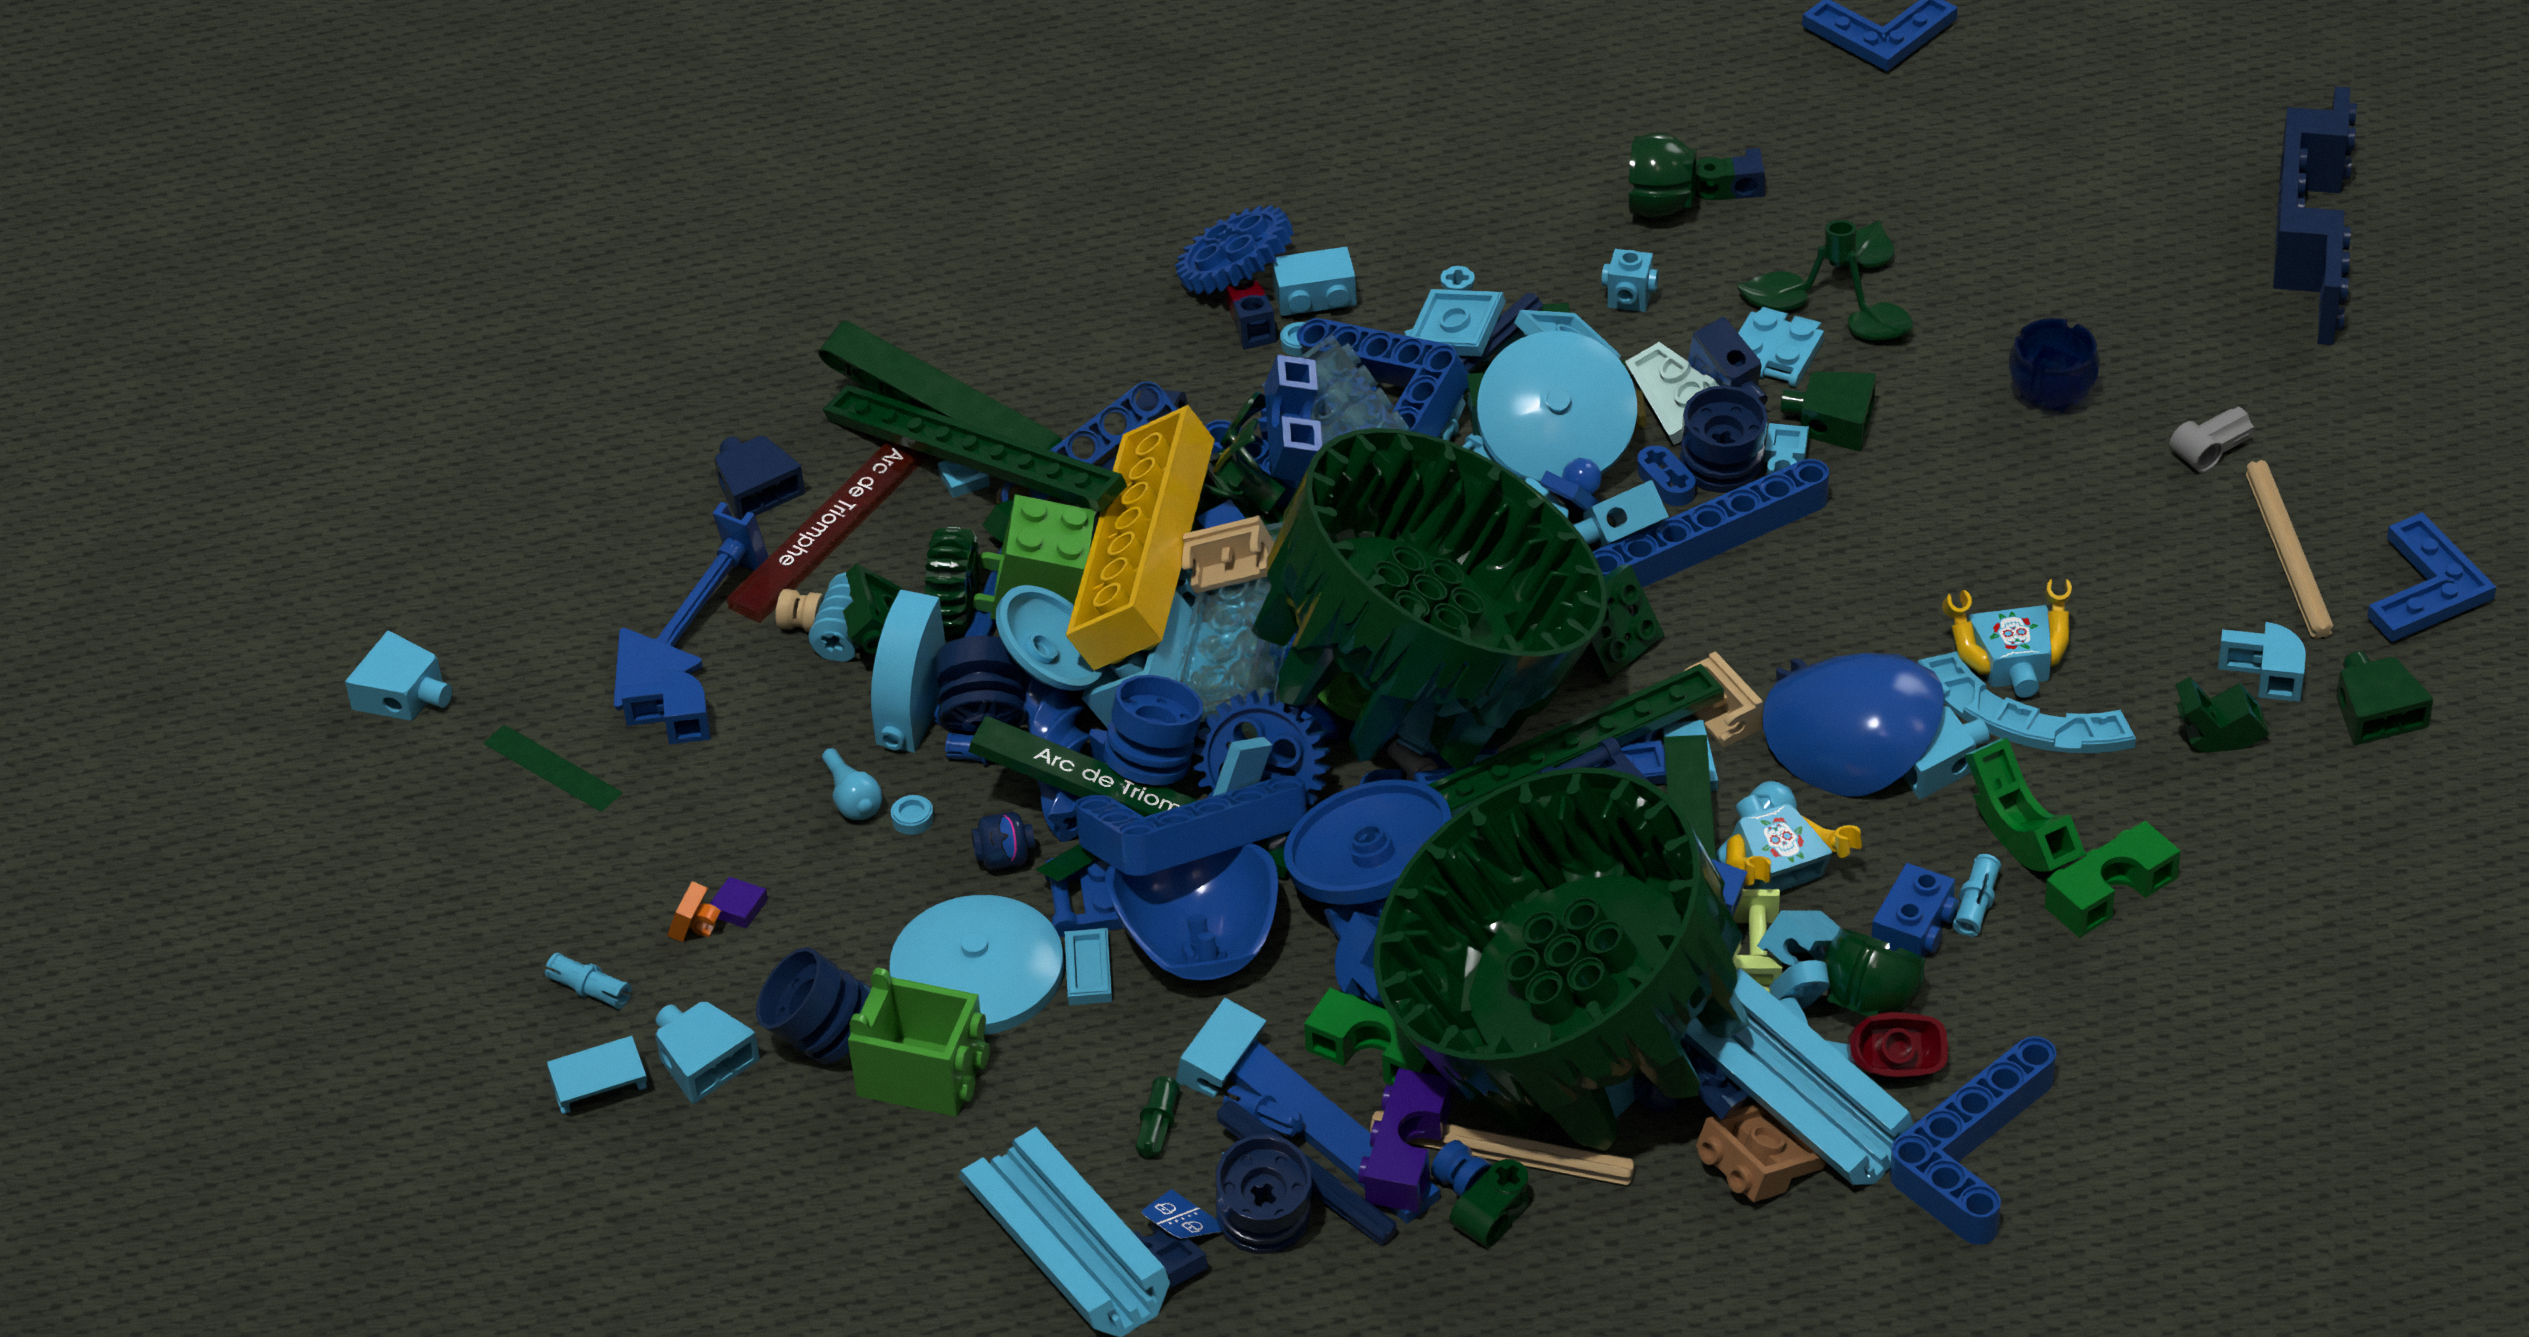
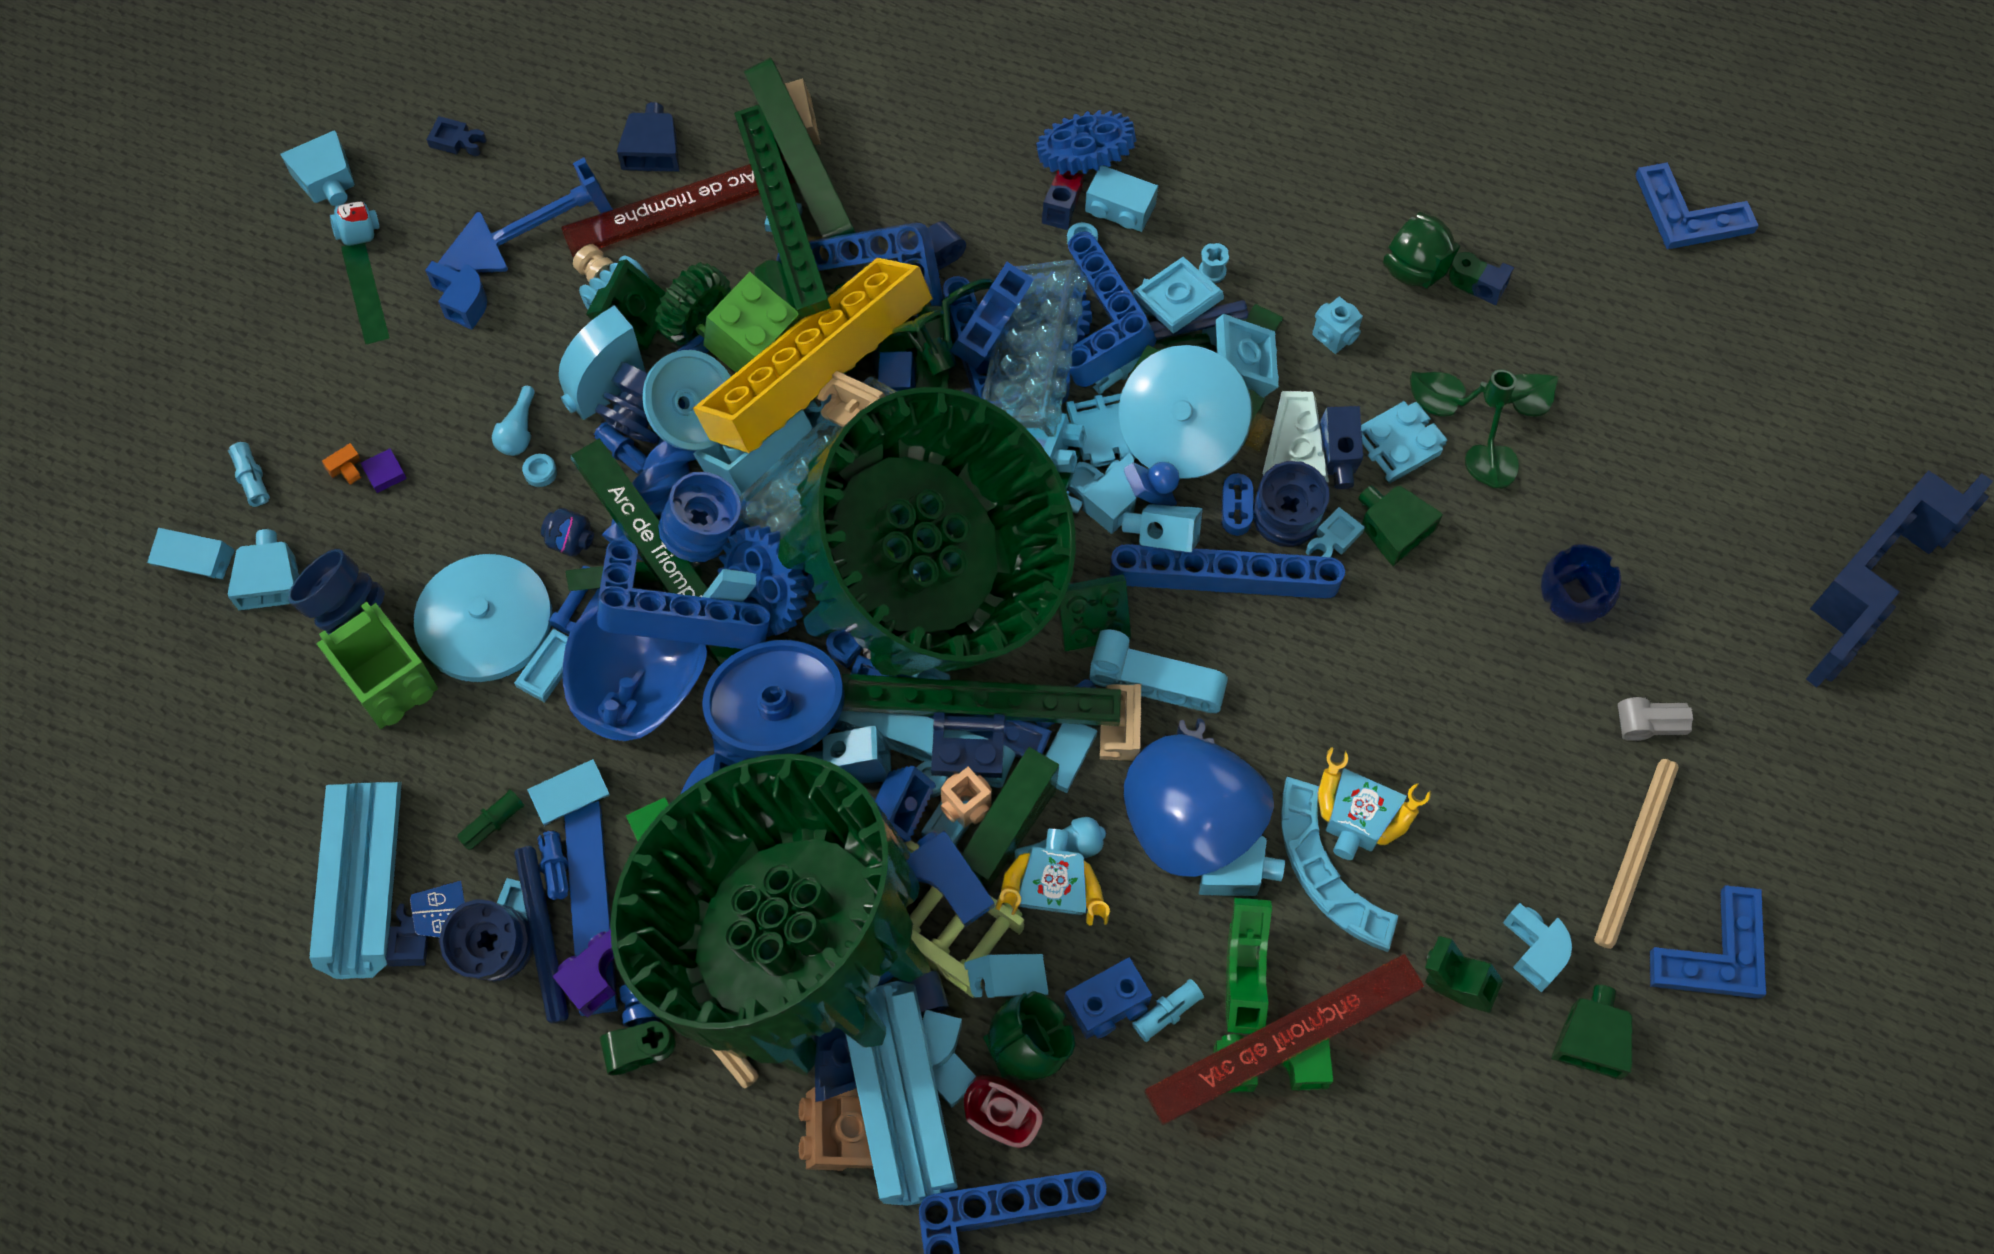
camera: 30 degrees right, 20 degrees up
(487, 706) = (354, 223): none -> medium azure head
(520, 581) = (452, 135): none -> dark blue plate
(1739, 640) = (1159, 676): none -> medium azure beam
(1803, 981) = (972, 1013): medium azure beam -> none
(2106, 842) = (1283, 1039): none -> clear red tile

